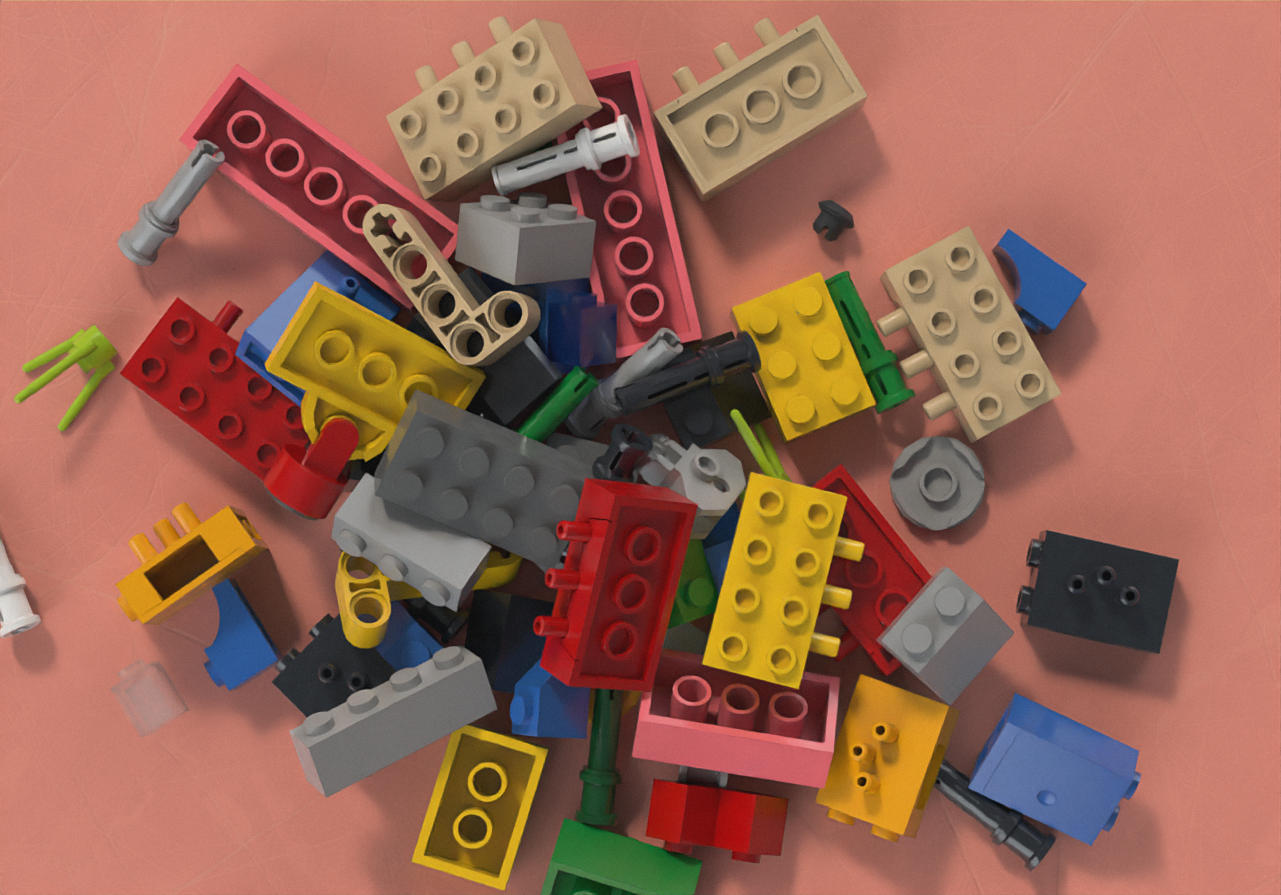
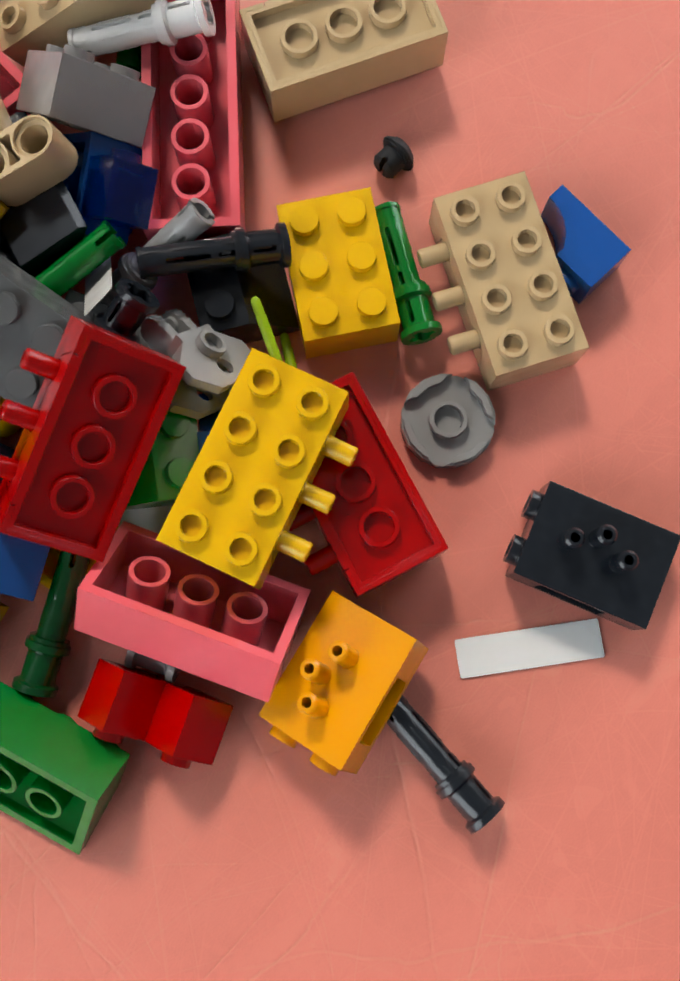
camera: 10 degrees right, 5 degrees down
(584, 431) = (97, 285): none -> white sticker
(946, 635) = (427, 562): light grey slope -> none
(1055, 770) = (518, 731): blue piece -> none
(1064, 685) = (529, 648): none -> white sticker

